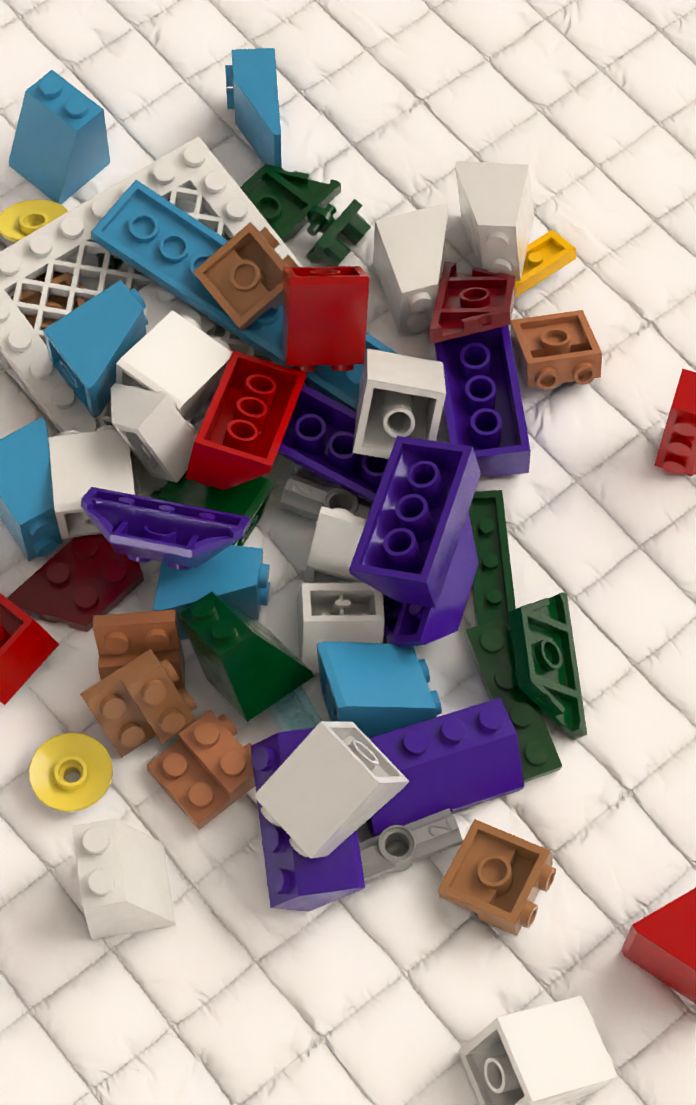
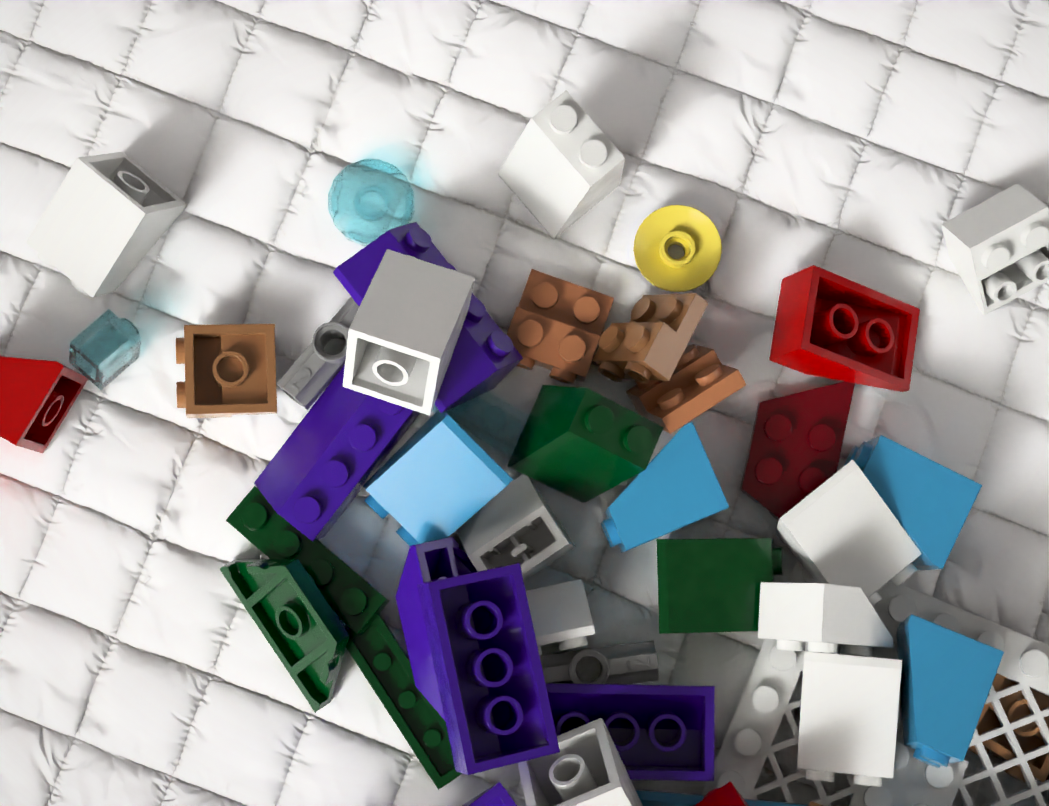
camera: 155 degrees right, 20 degrees up
(162, 529) = (730, 489): dark purple wedge -> none
(244, 422) = (727, 684): red slope -> none
(297, 958) = (370, 200): none -> clear light blue tile
(591, 950) = (105, 348): none -> clear light blue brick

